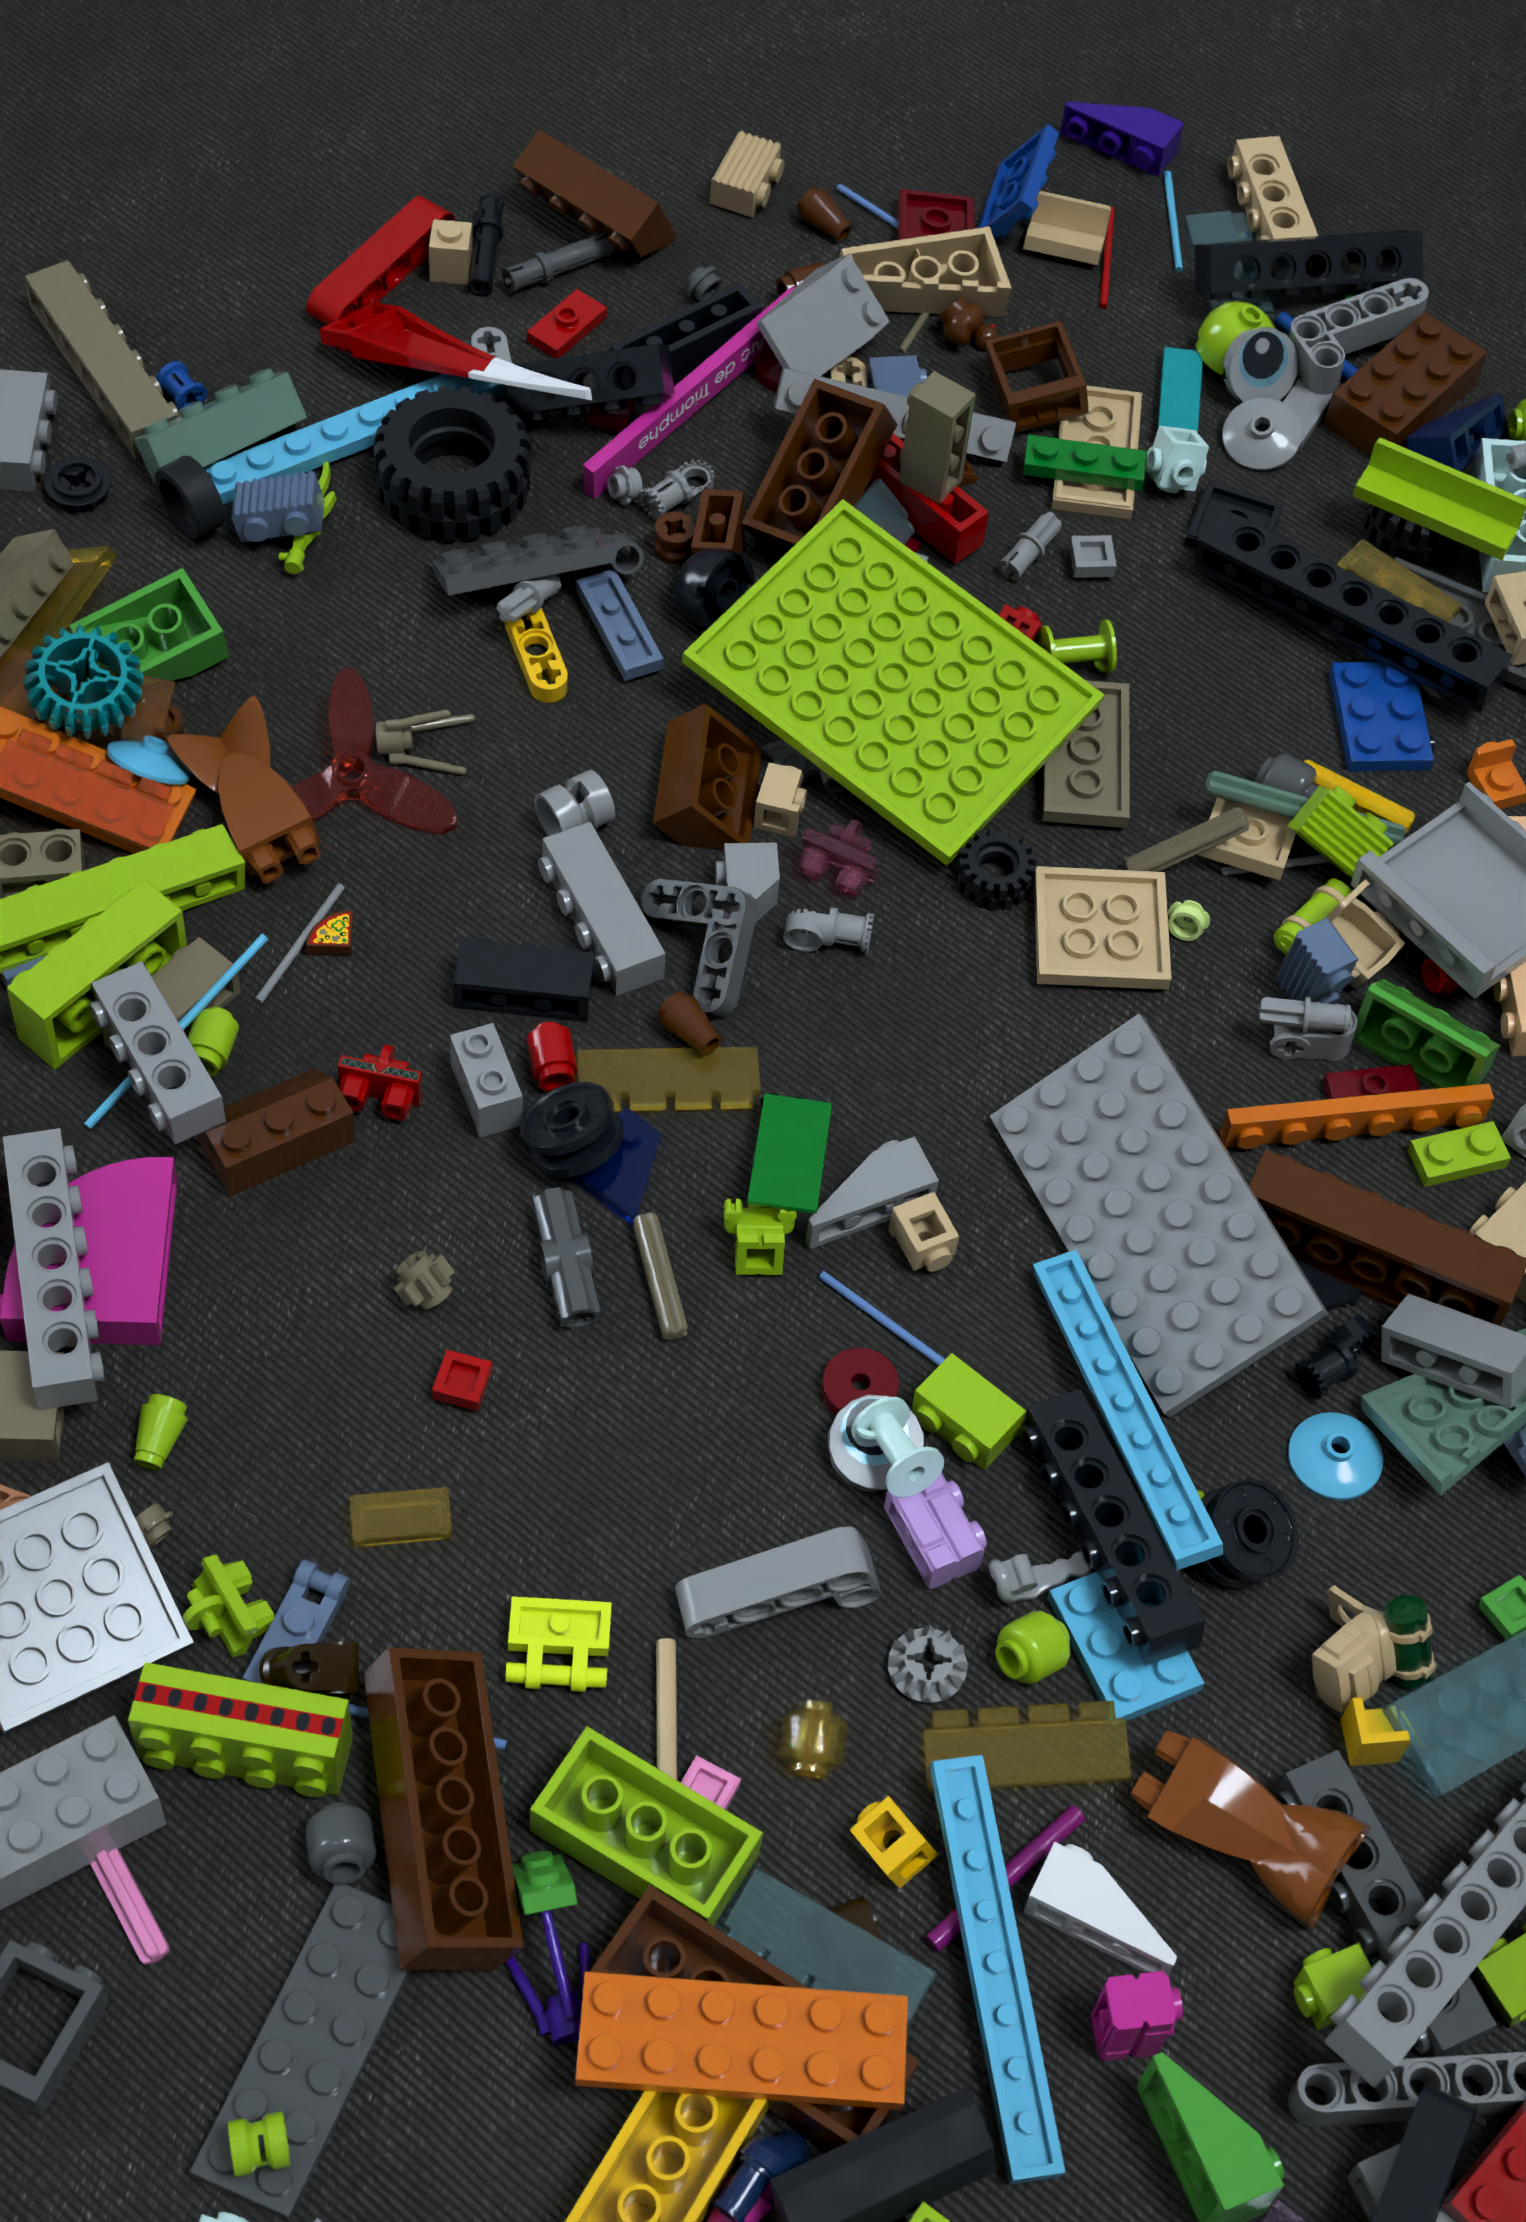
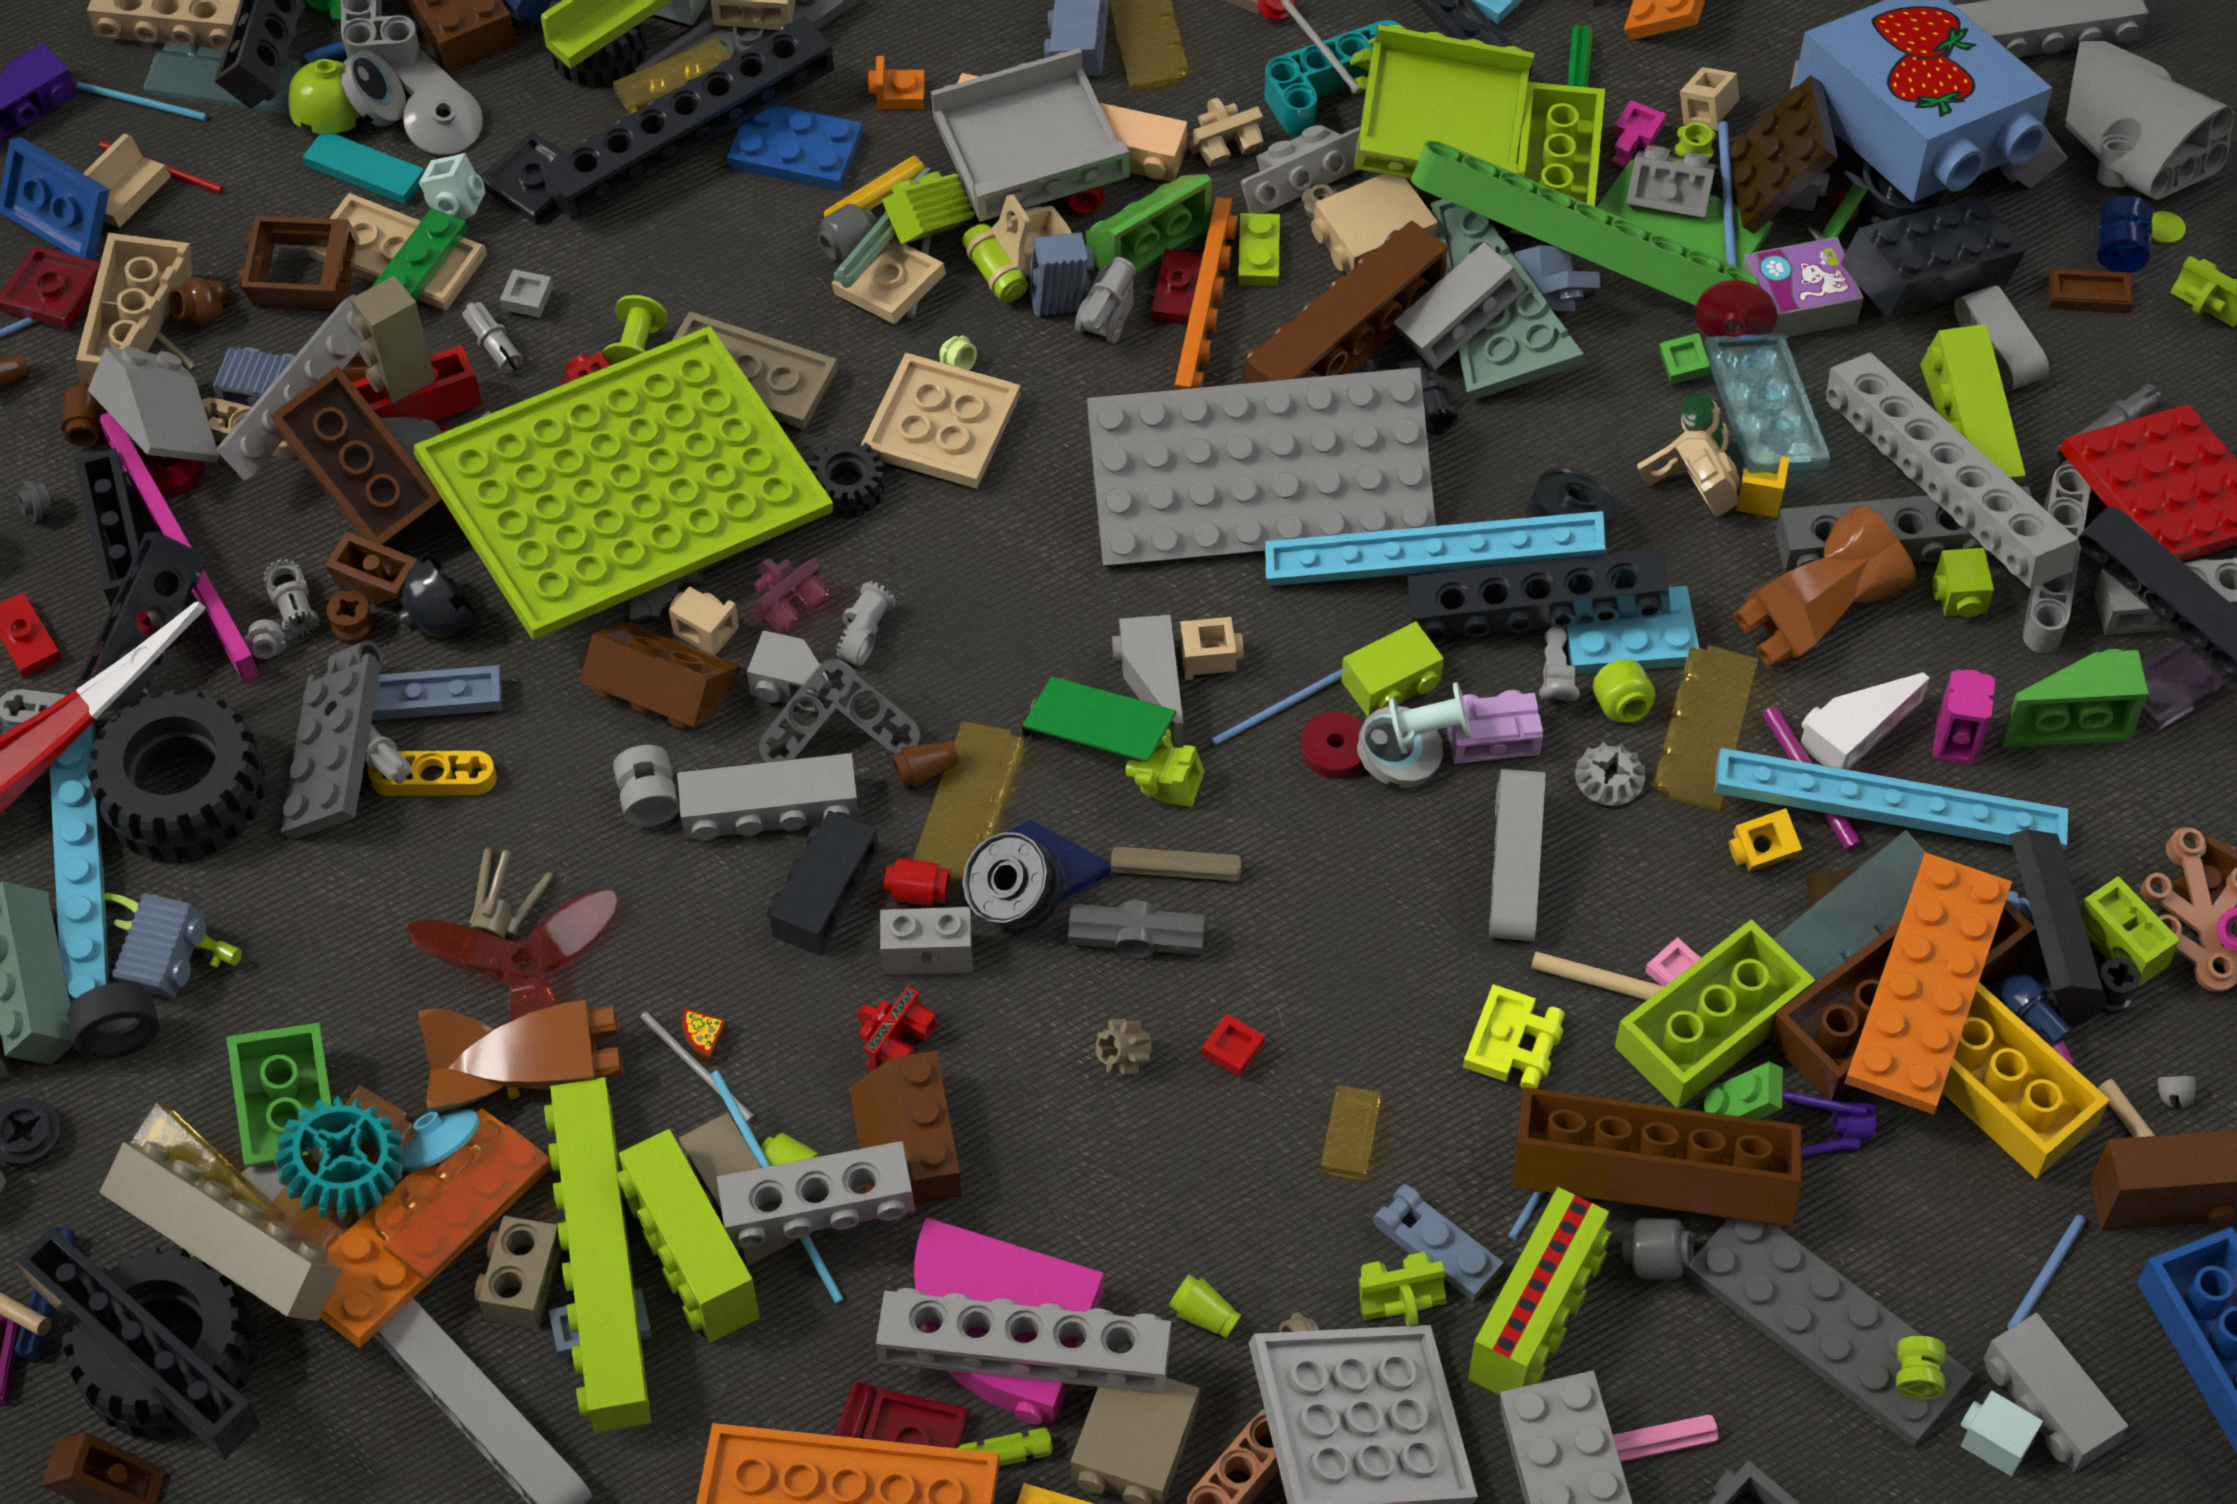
camera: 65 degrees left, 0 degrees up
(314, 1667) = (1490, 1227): dark brown piece -> none
(813, 1740) = (1661, 872): clear yellow head -> none
(1190, 842) = (889, 322): dark tan axle -> none
(1333, 1473) = (1503, 444): medium azure dish -> none

